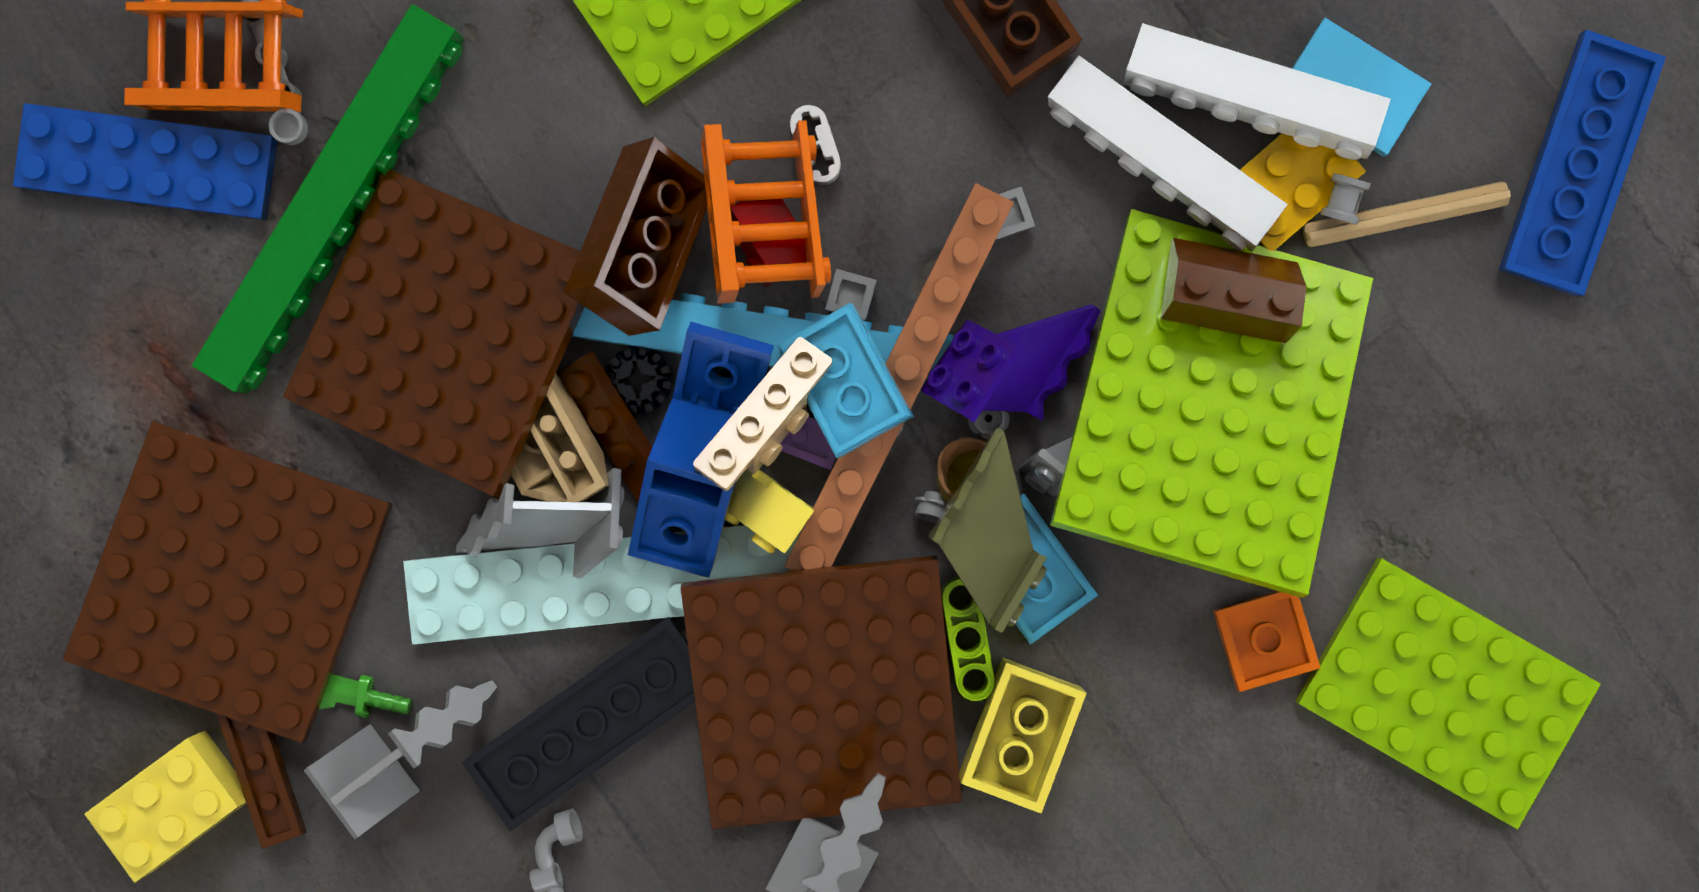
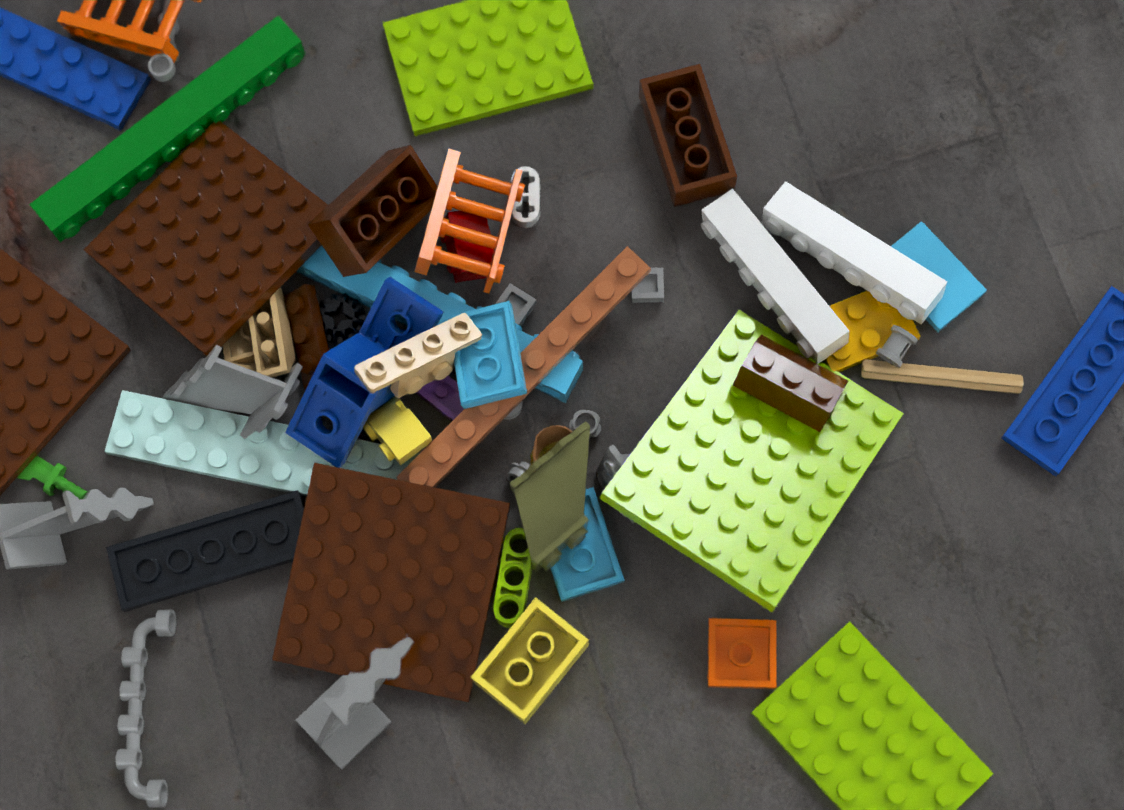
camera: 20 degrees right, 15 degrees down
(1010, 367) = (612, 386): dark purple piece -> none

